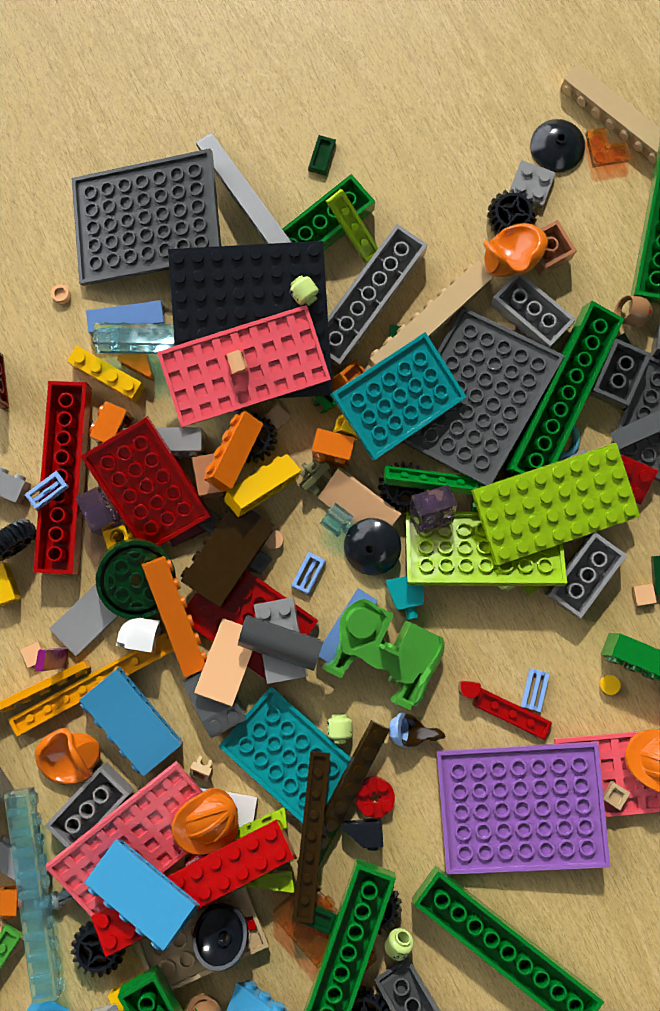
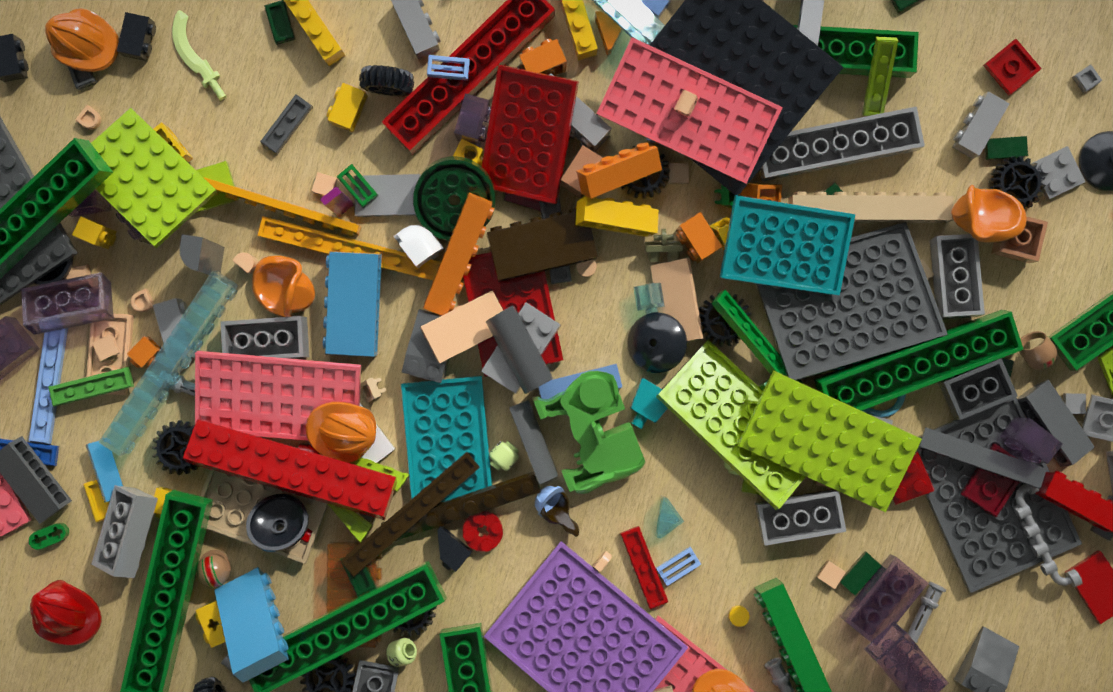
camera: 40 degrees right, 5 degrees up
(25, 764) = (245, 262): none -> light nougat brick
(74, 635) = (368, 198): none -> green tile
(141, 895) = (249, 437): dark azure brick -> none
(304, 290) = (791, 94): yellowish green head -> none
(315, 559) = (604, 311): light blue tile -> none
(351, 698) = (533, 441): none -> dark grey brick
(432, 509) = (730, 357): brick -> none
(435, 142) = (1012, 67): none -> red plate
(450, 198) = (980, 125): none -> light grey brick
(469, 689) = (629, 518): red brick -> none
(479, 737) = (602, 561): none -> light nougat tile
(482, 198) = (1006, 147): none -> dark green tile
(491, 105) = (1087, 78): none -> light grey tile
(496, 663) = (667, 519): none -> clear light blue slope

